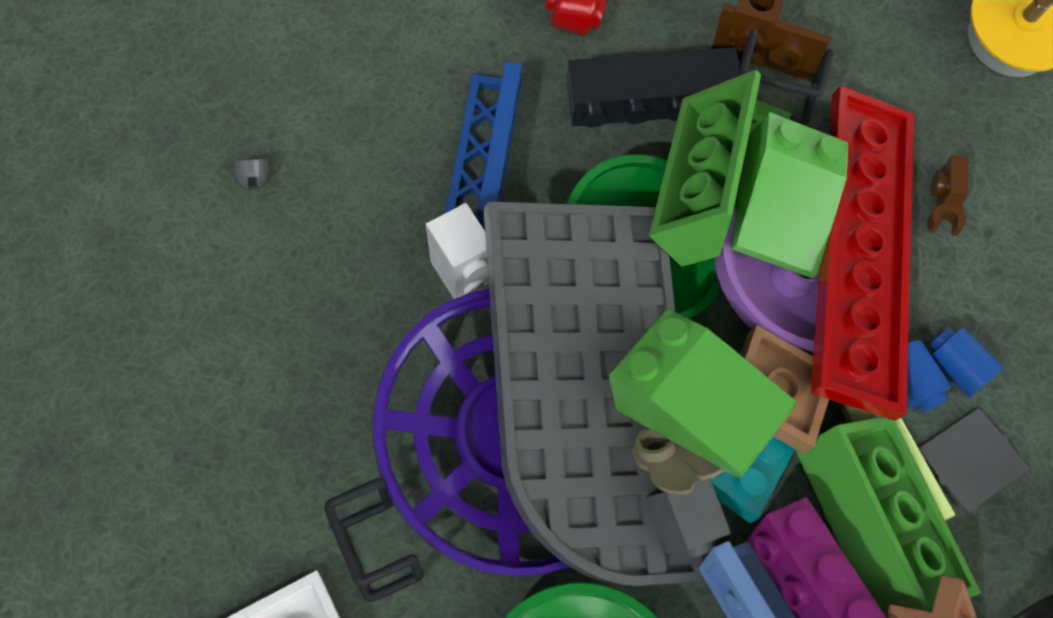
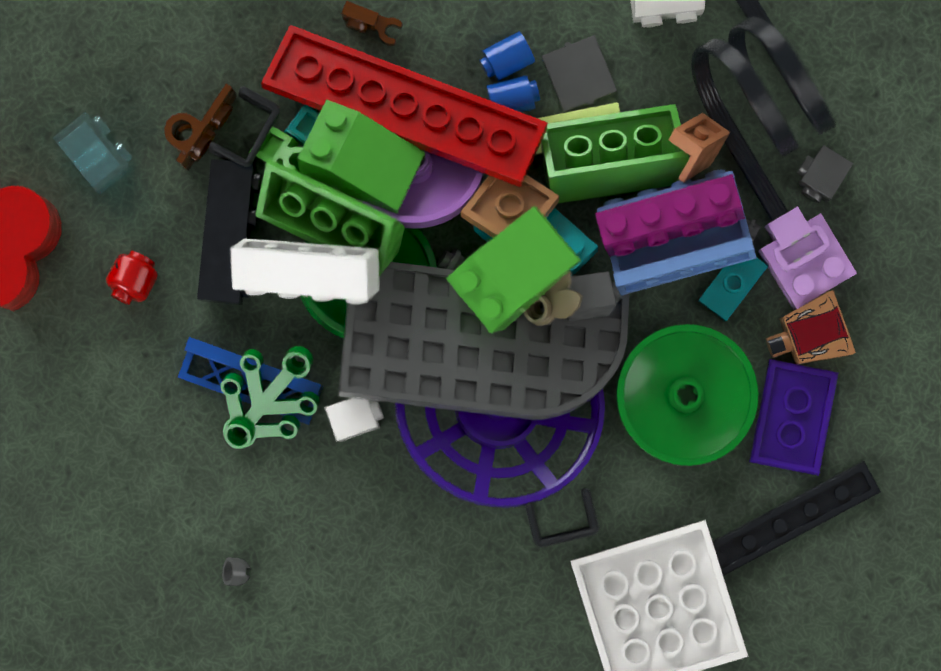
camera: 70 degrees left, 20 degrees up
(425, 144) = (266, 401): none -> plant
(634, 149) = (305, 270): none -> white brick

